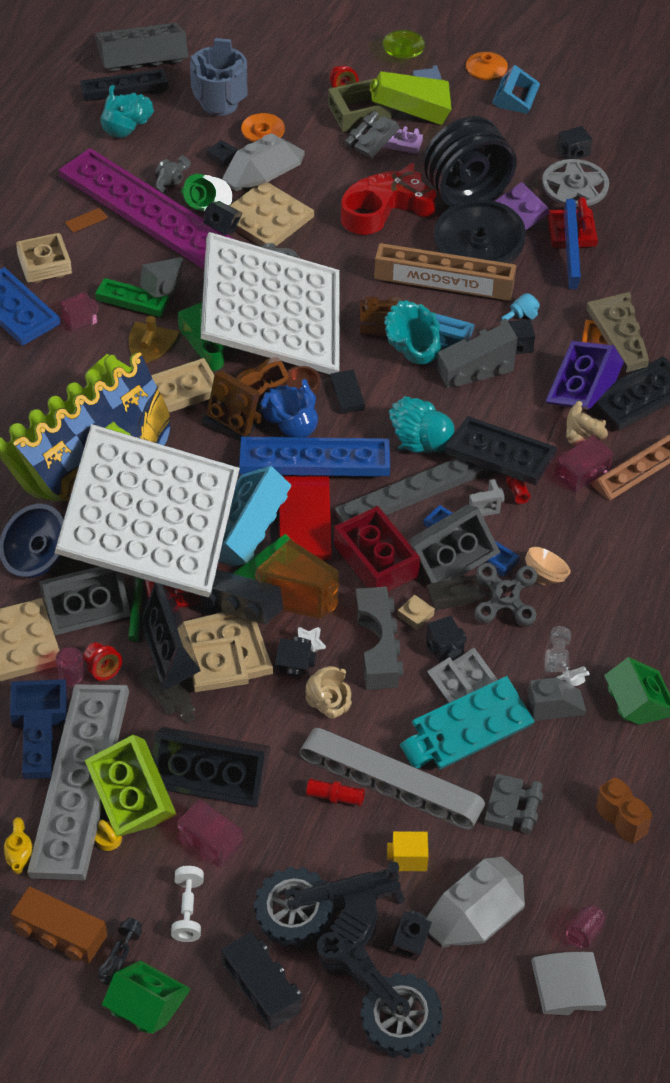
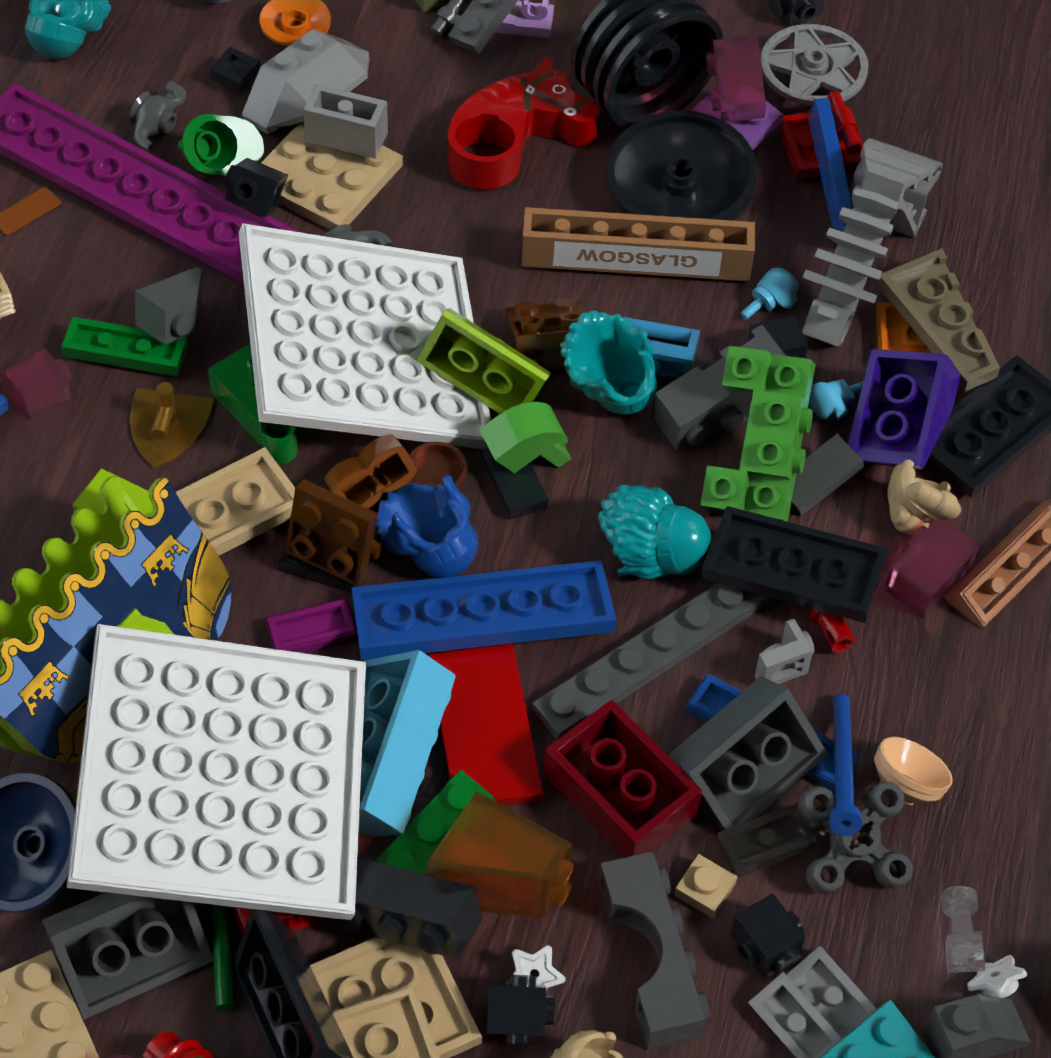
camera: 10 degrees left, 5 degrees up
(222, 453) = (312, 628): none -> magenta tile
(281, 185) = (345, 121): none -> light grey brick
(338, 326) = (481, 363): none -> lime slope
(354, 365) = (524, 434): none -> bright green brick
(499, 578) = (845, 817): none -> blue bar
(502, 380) = (772, 435): none -> bright green bracket
(521, 183) = (738, 78): none -> clear pink brick
(528, 408) = (824, 472): none -> dark grey tile
(544, 368) = (833, 398): none -> medium azure piece
(602, 258) = (886, 196): none -> light grey piece

